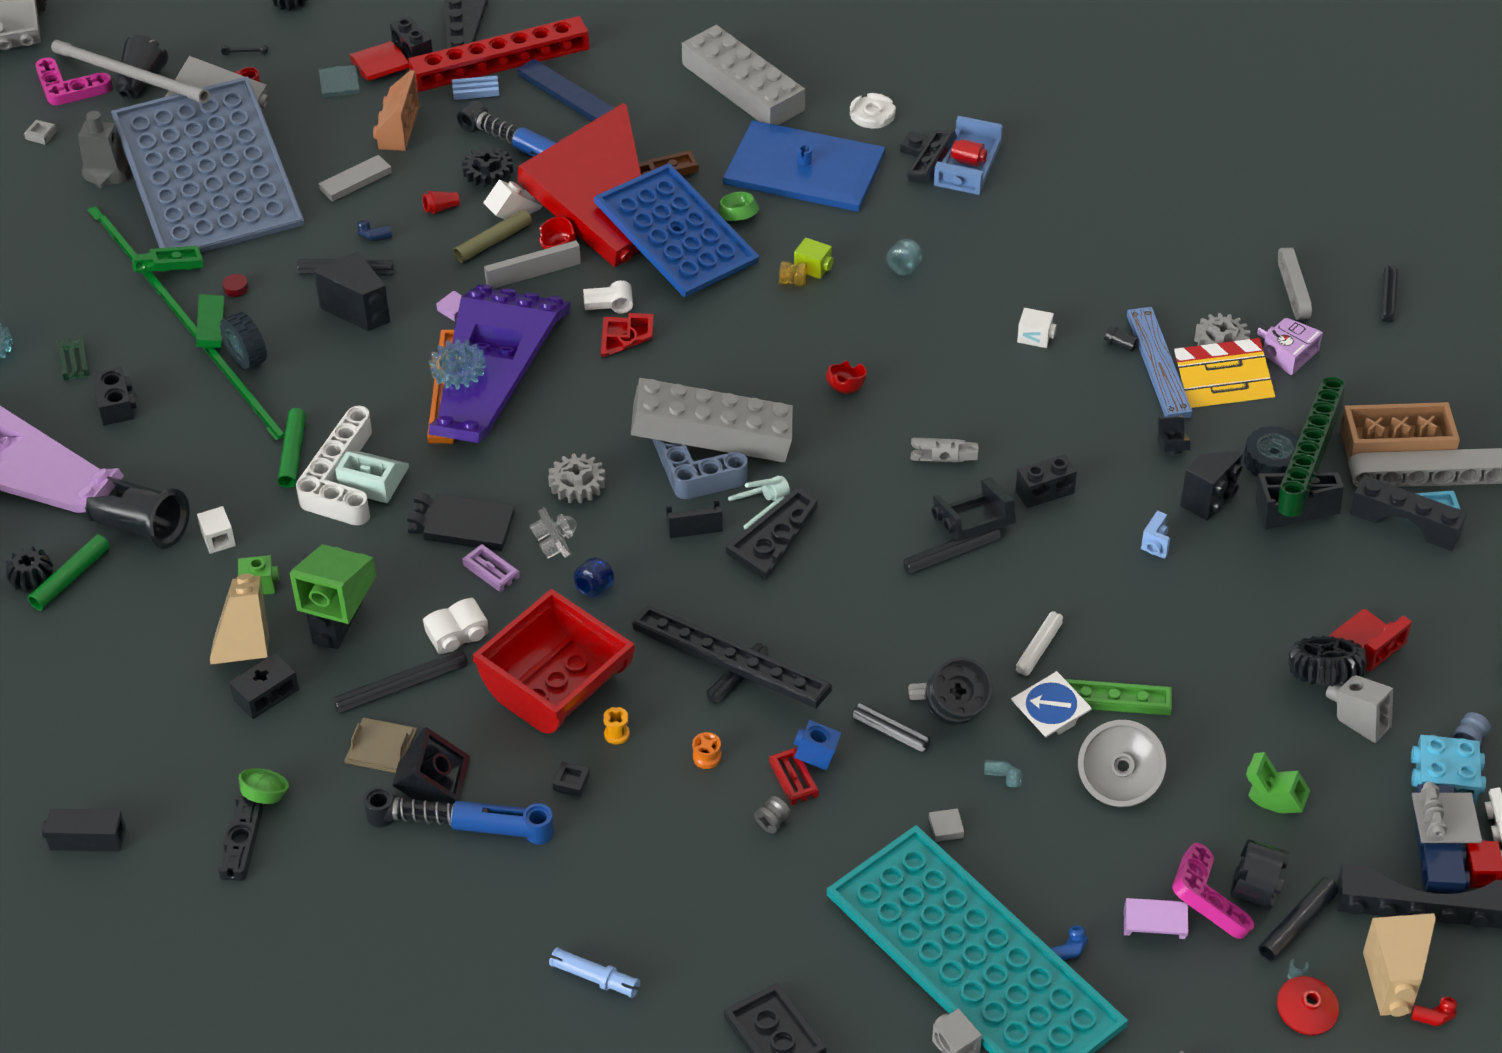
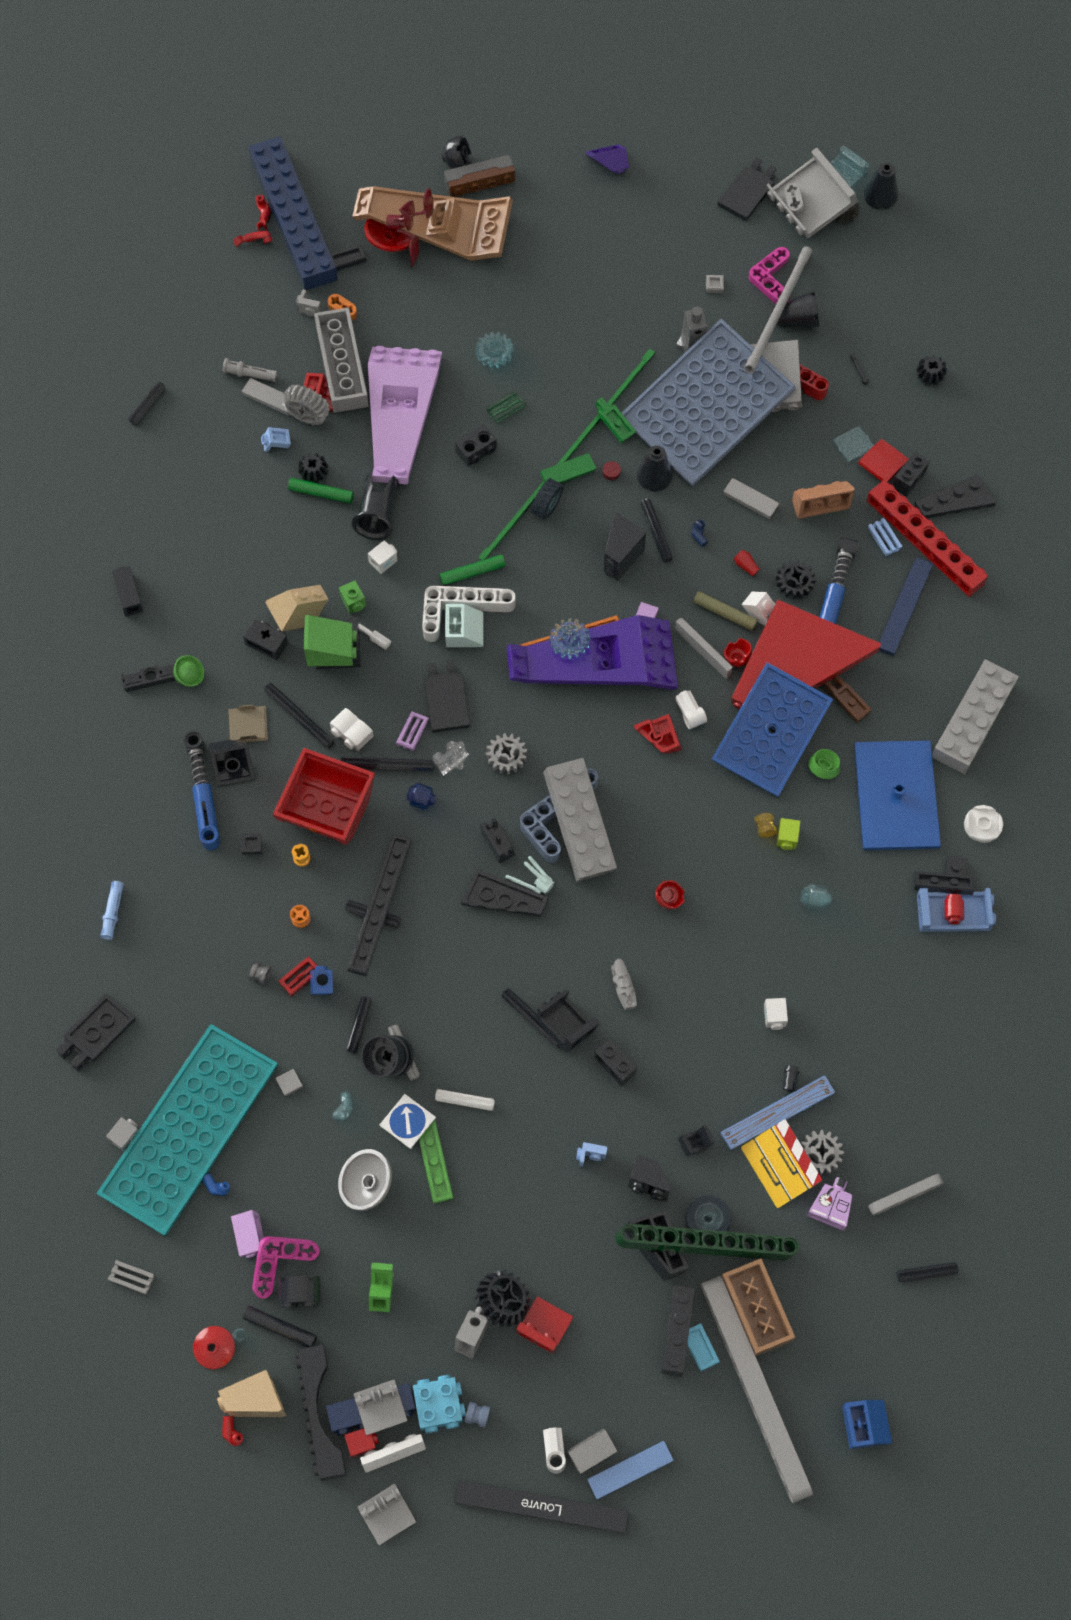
camera: 70 degrees right, 20 degrees up
(263, 237) = (655, 470): none -> black cone
(534, 587) = (390, 763): none -> black axle

